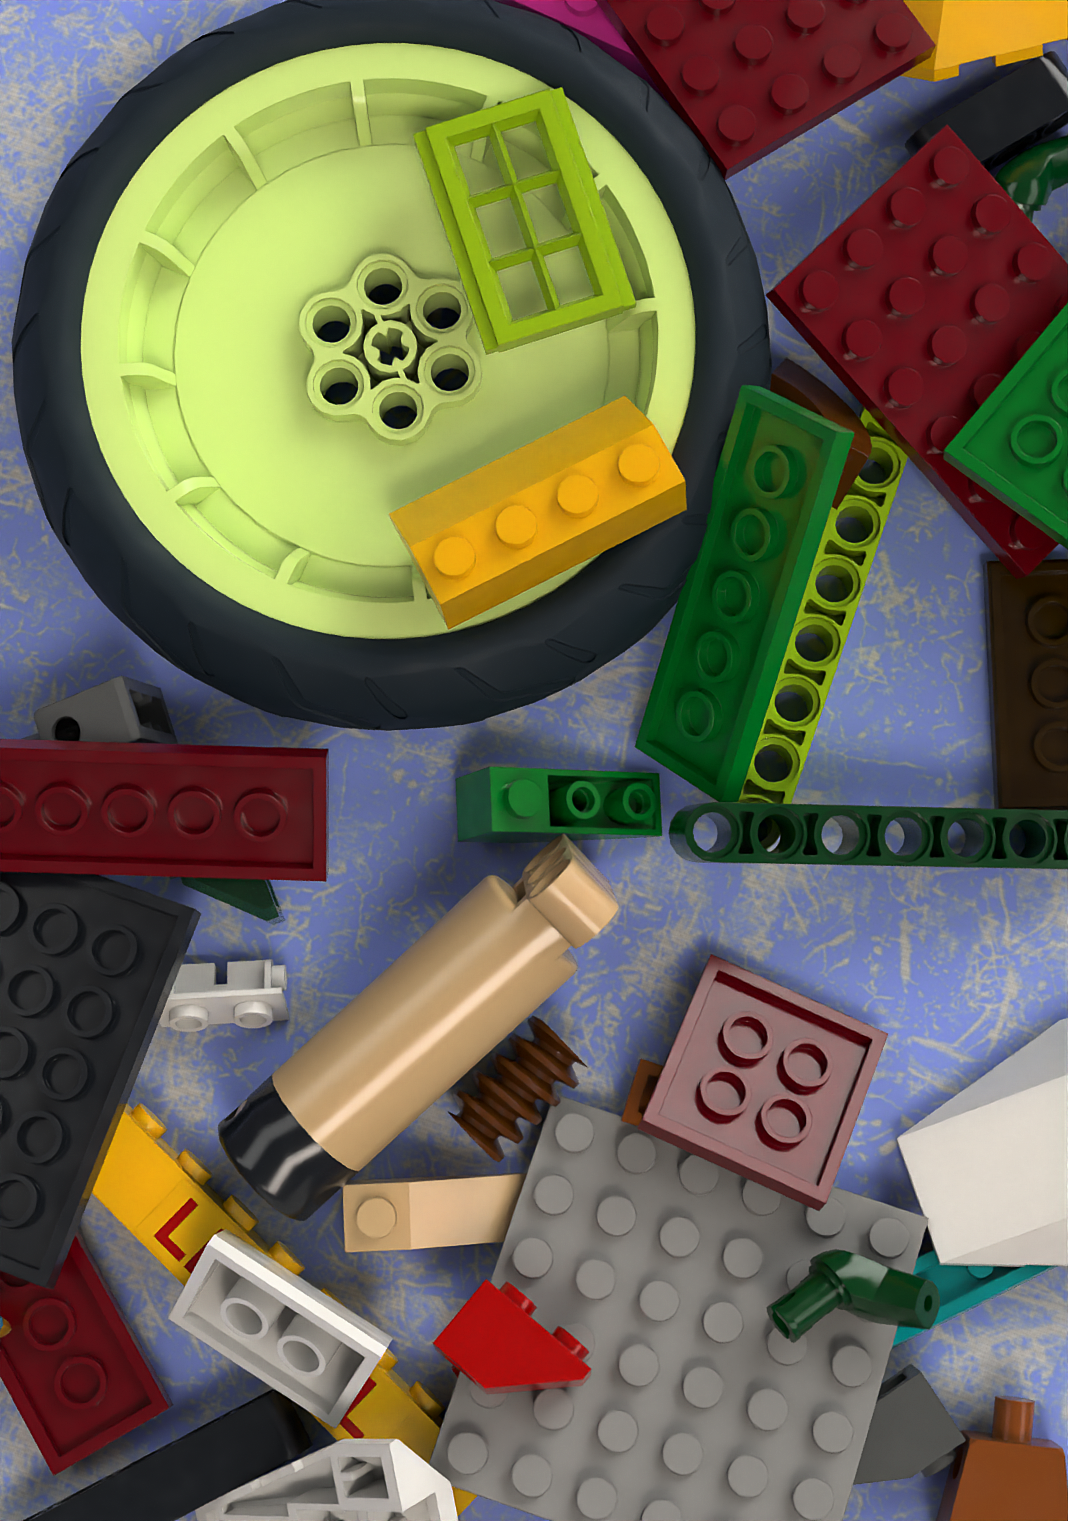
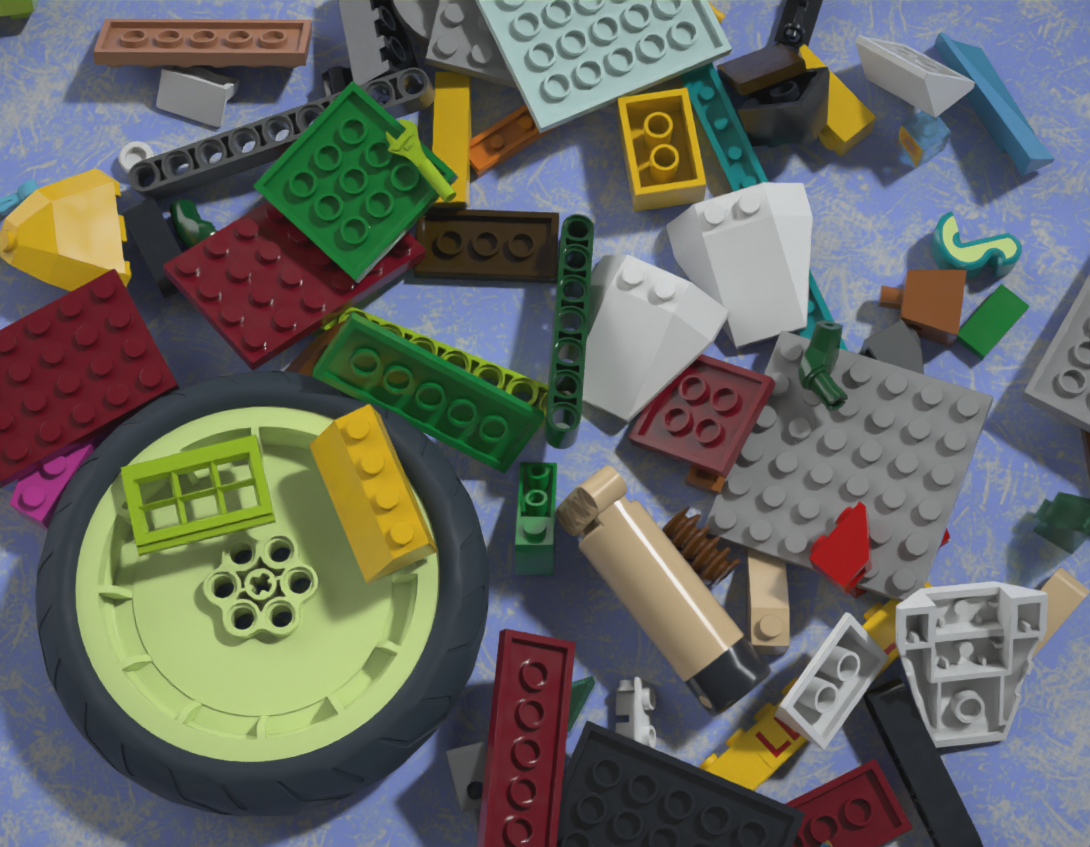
camera: 85 degrees left, 10 degrees down
(902, 965) = (642, 333): none -> white wedge

